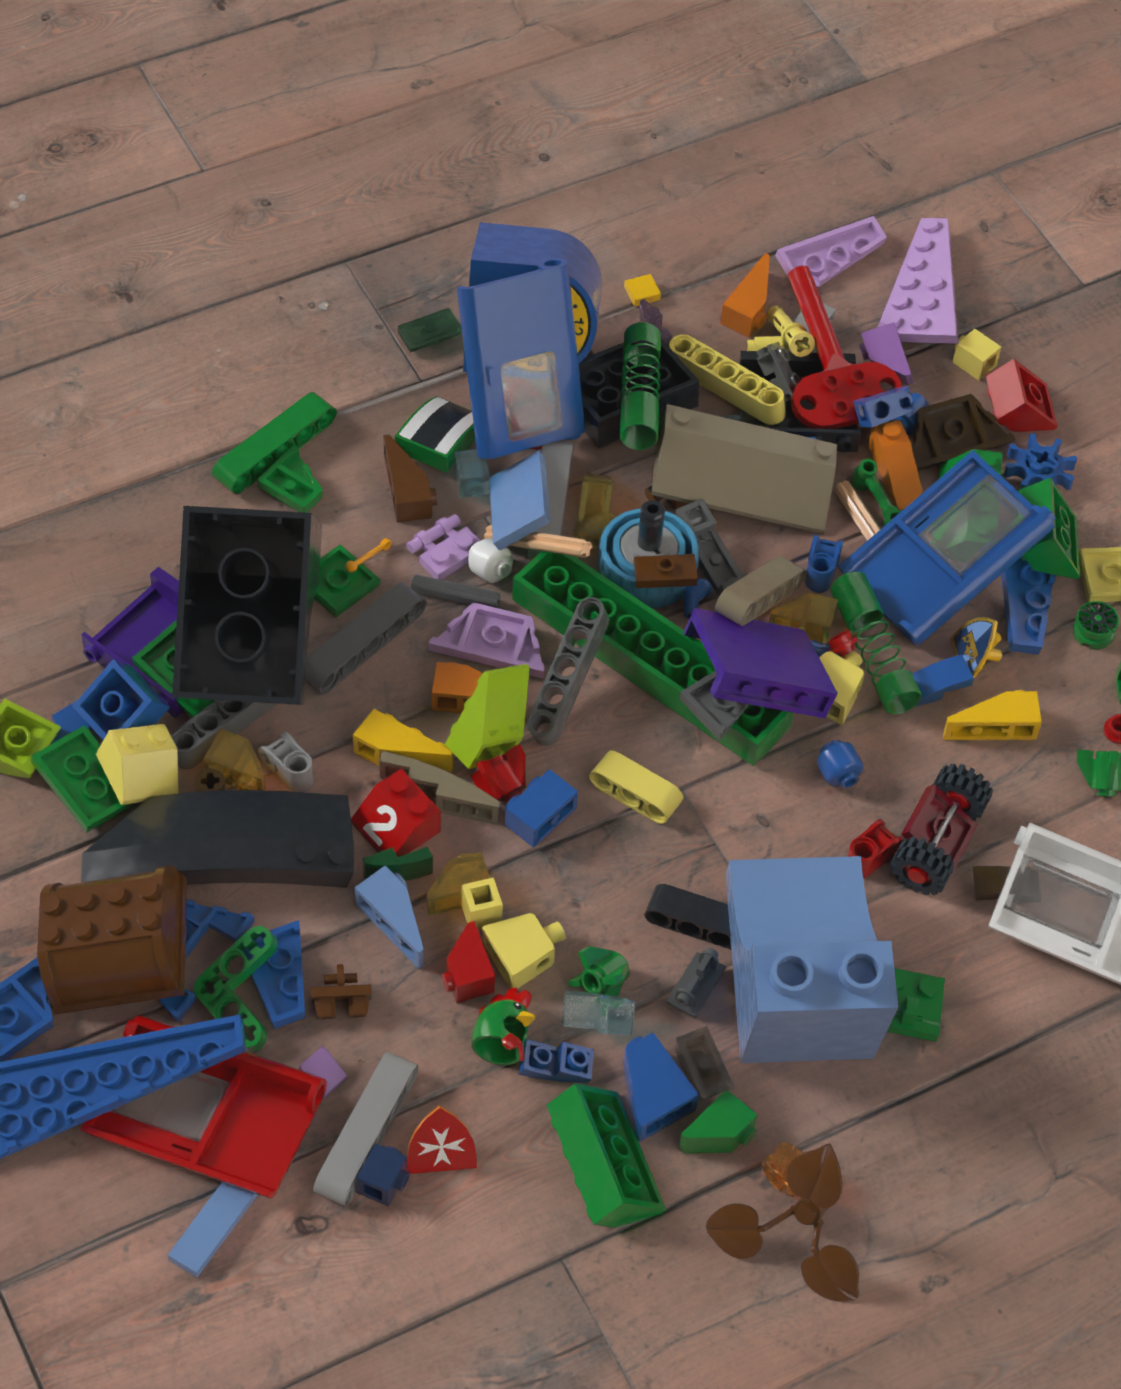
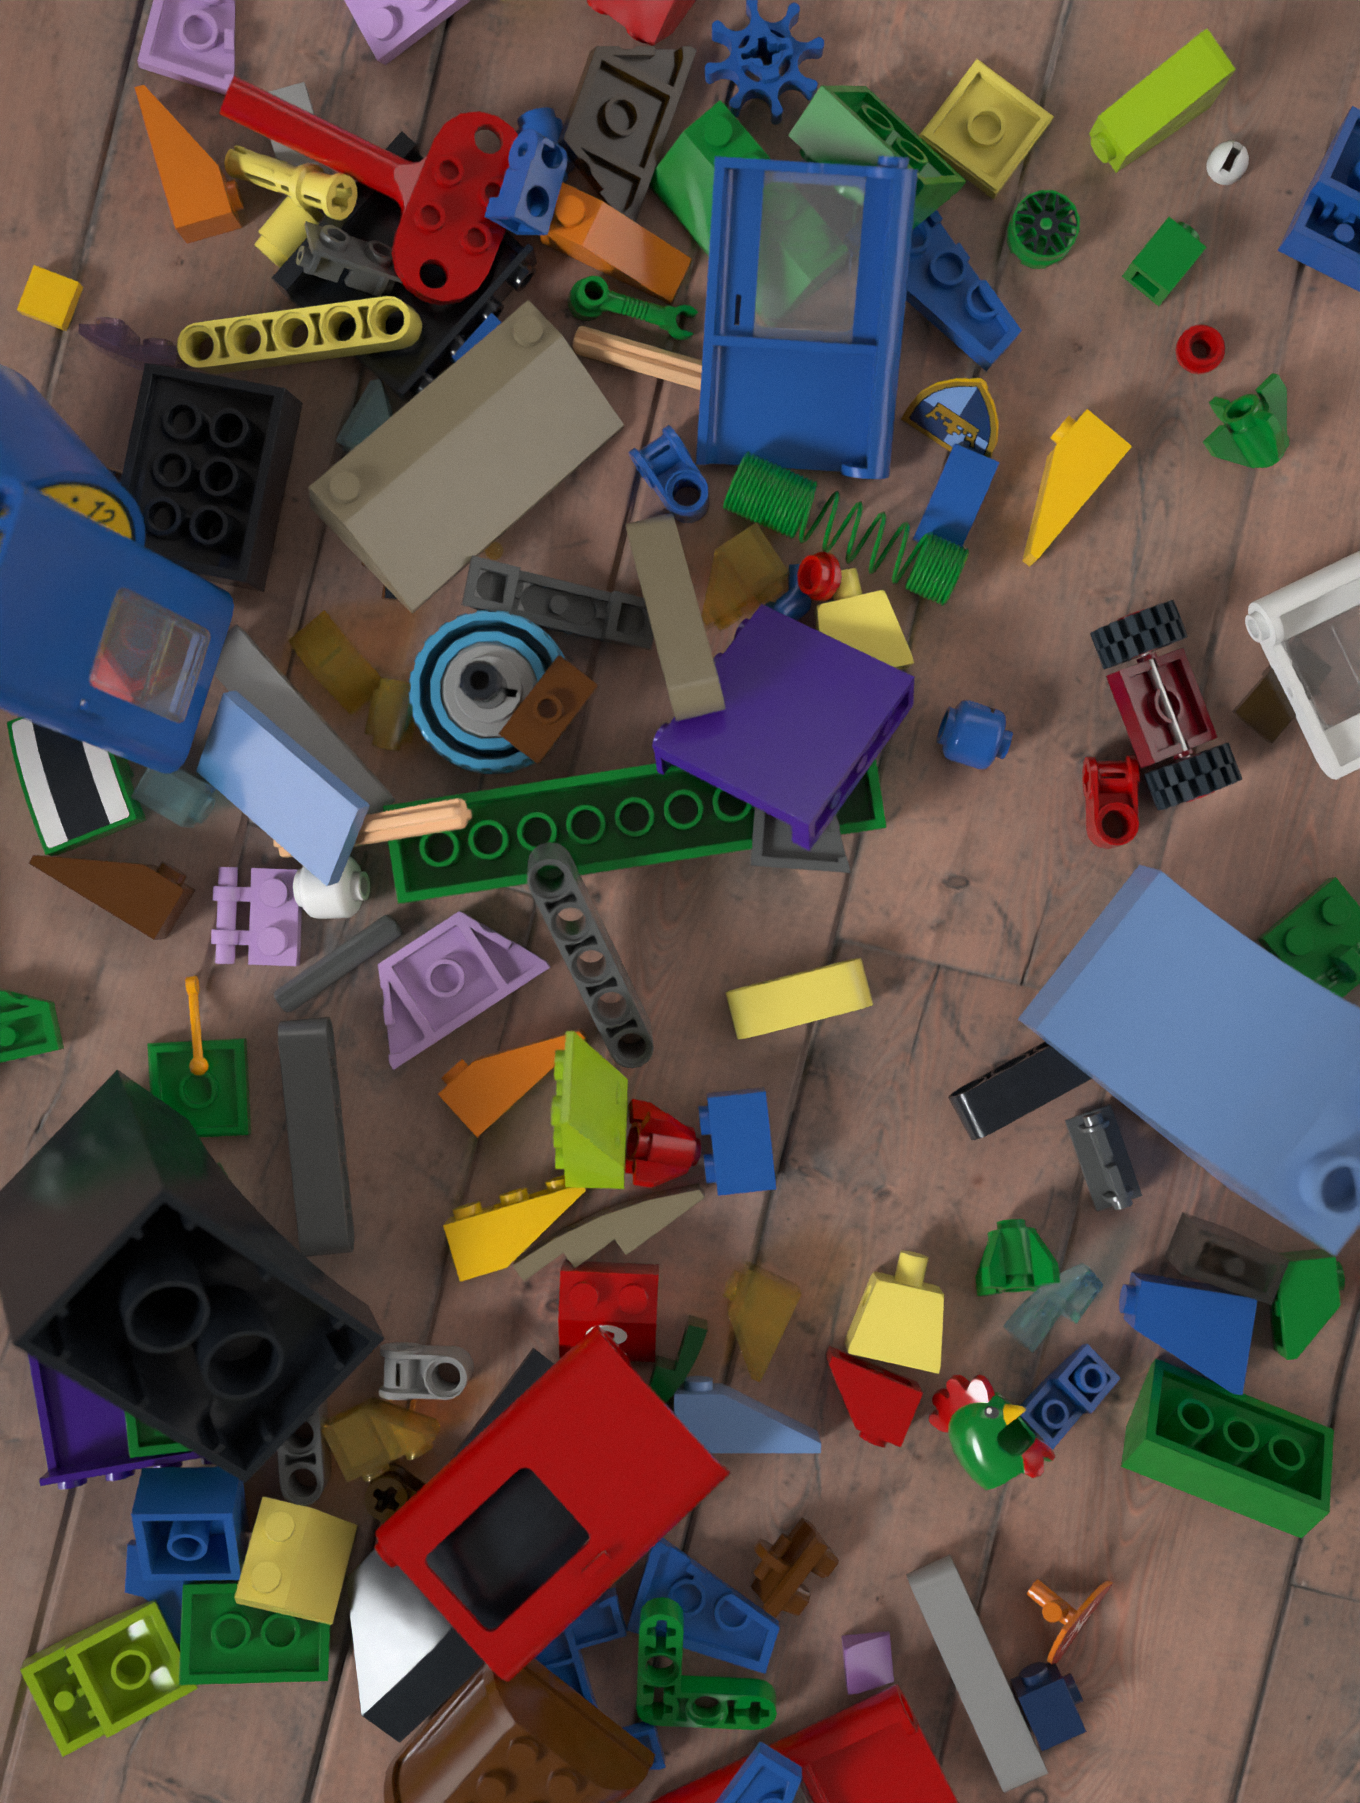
camera: 40 degrees left, 35 degrees up
(330, 846) = (606, 1456): none -> red piece
(481, 902) = (816, 1324): light yellow brick -> none
(640, 408) = (287, 525): green piece -> none
(693, 594) = (589, 663): blue arm -> none
(885, 347) = (428, 83): medium lavender slope -> none

